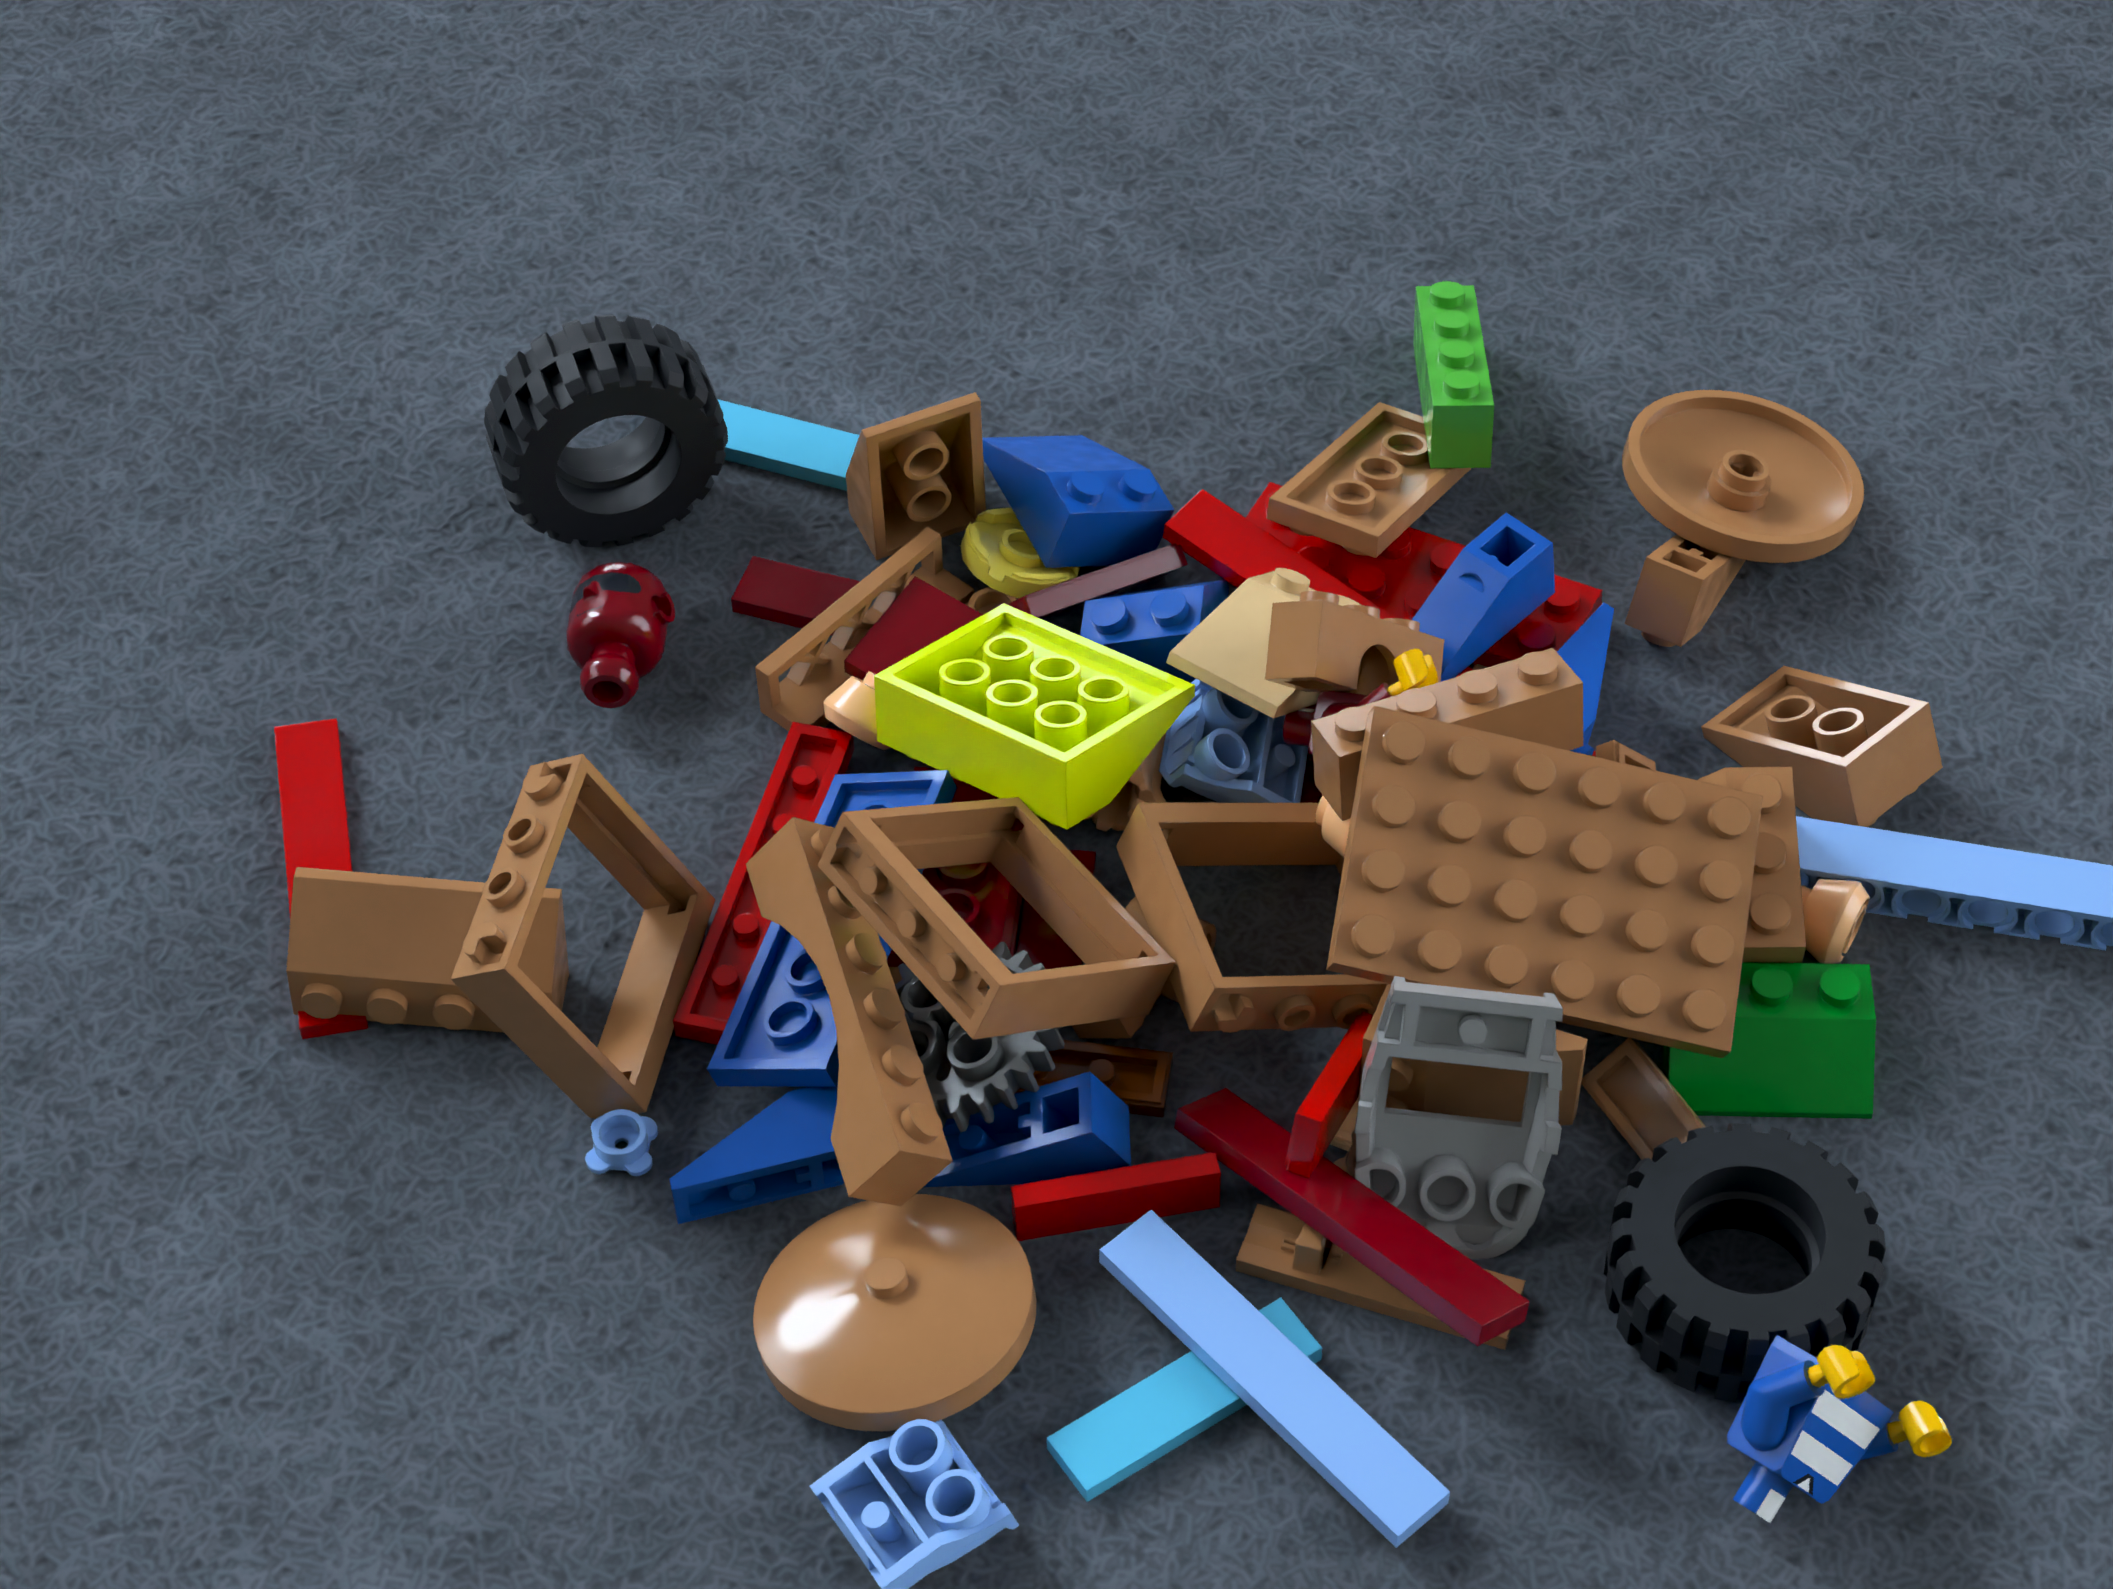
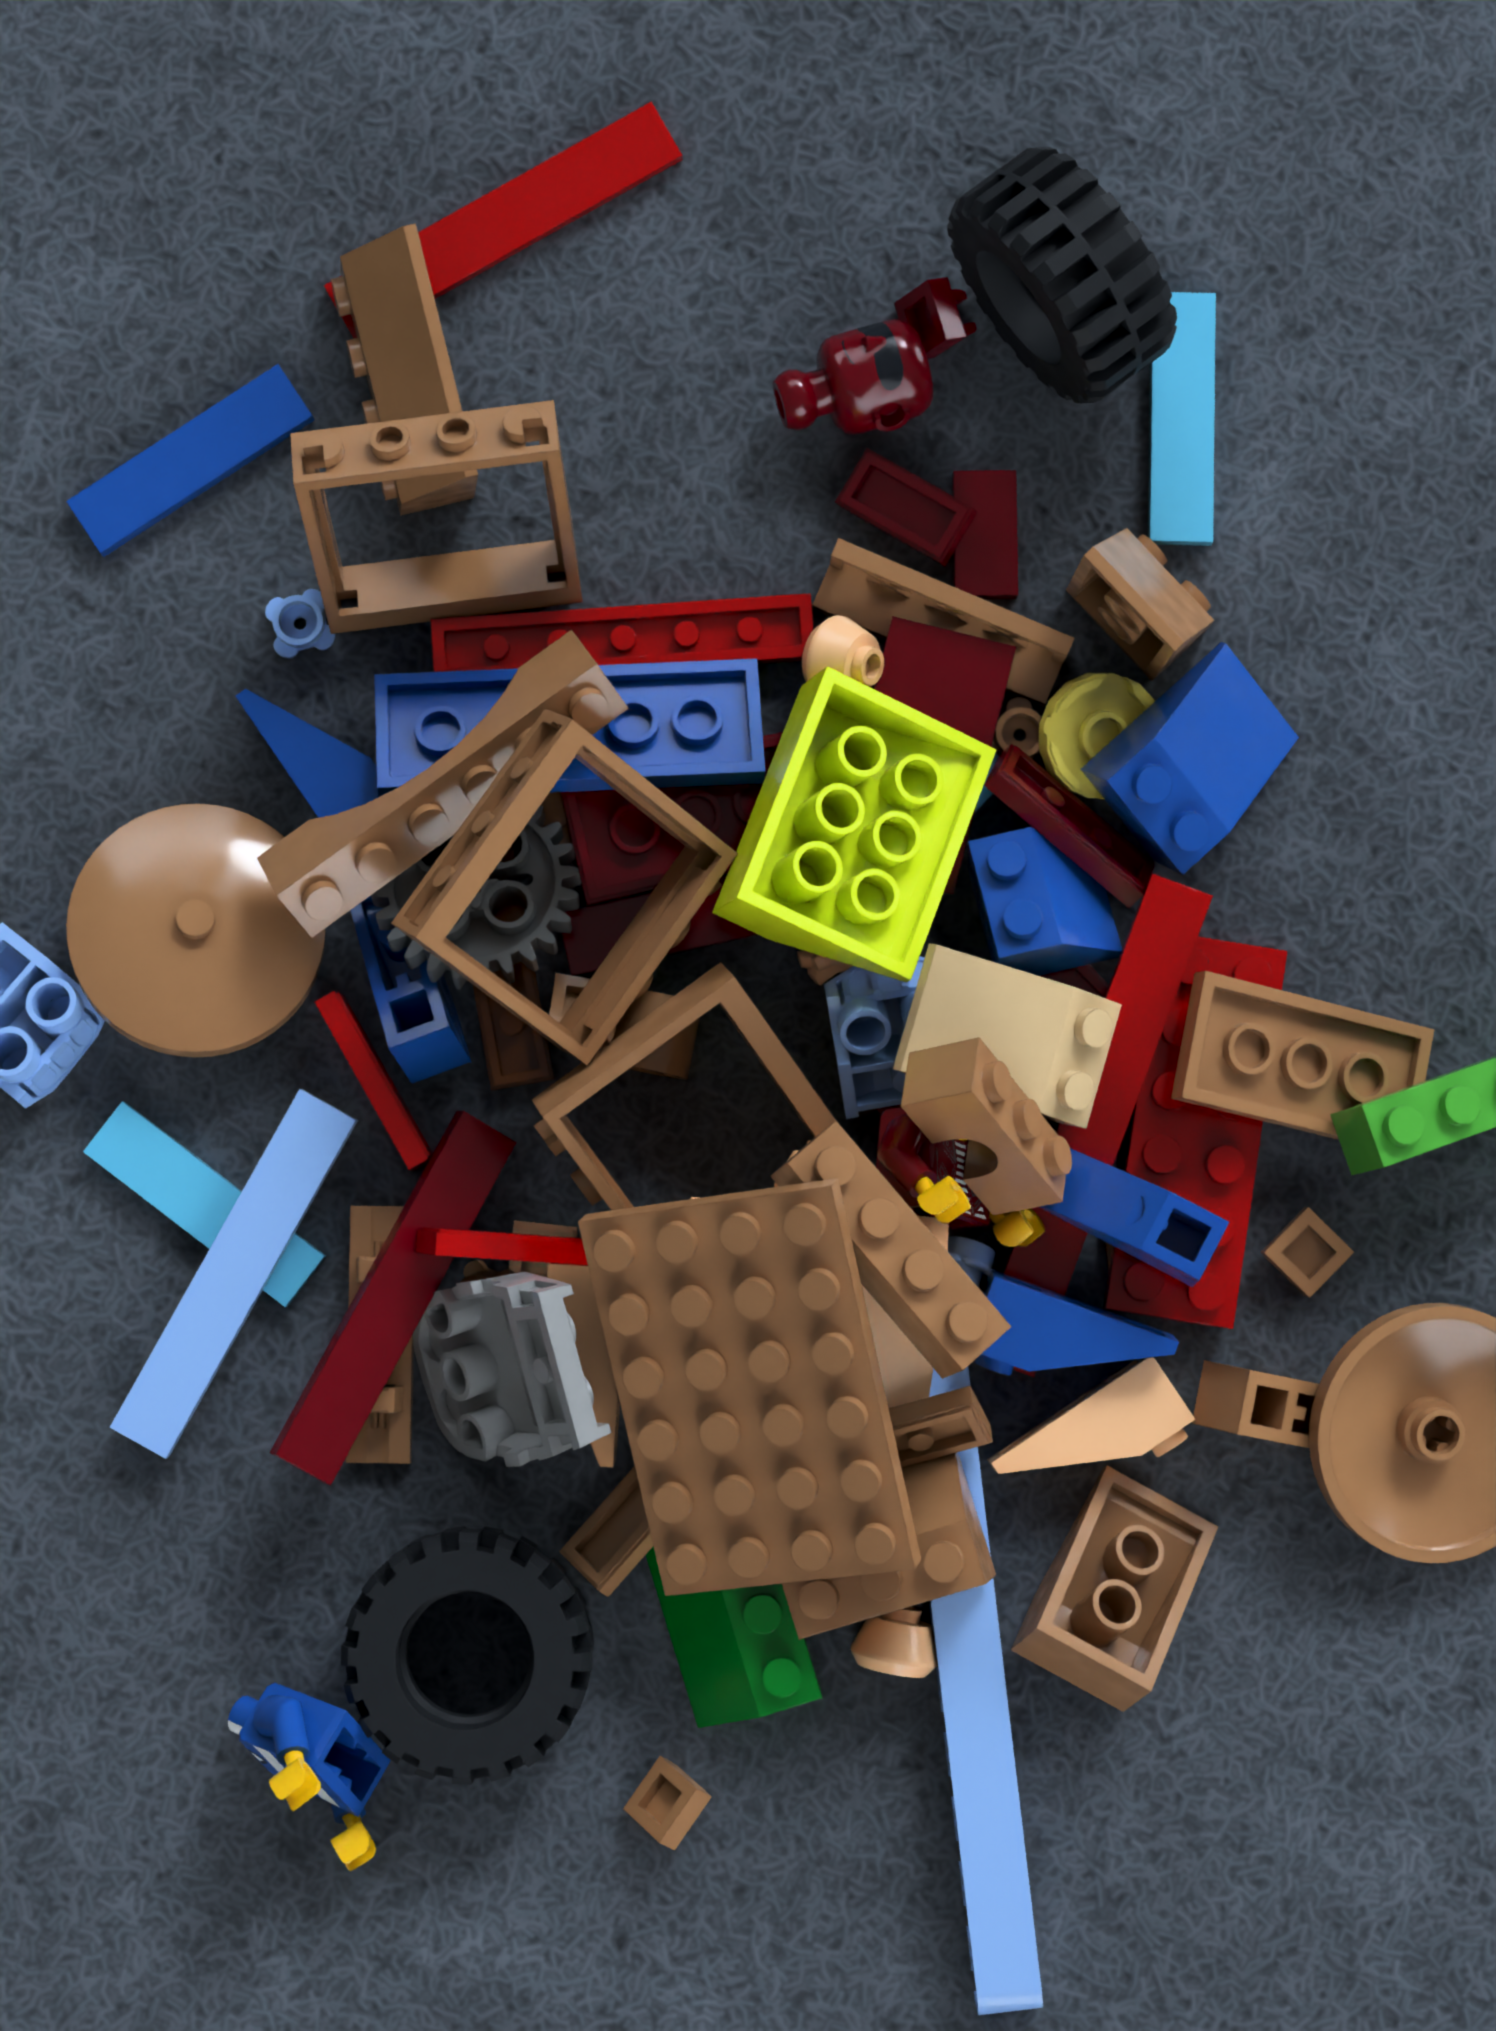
camera: 65 degrees right, 35 degrees up
(410, 1197) = (190, 460): none -> blue tile
(573, 562) = (935, 315): none -> dark red tile
(742, 639) = (906, 507): none -> dark red tile
(1559, 526) = (1307, 1252): none -> medium nougat plate
(1656, 695) = (1114, 1420): none -> light nougat slope
(1944, 1148) = (667, 1803): none -> medium nougat plate

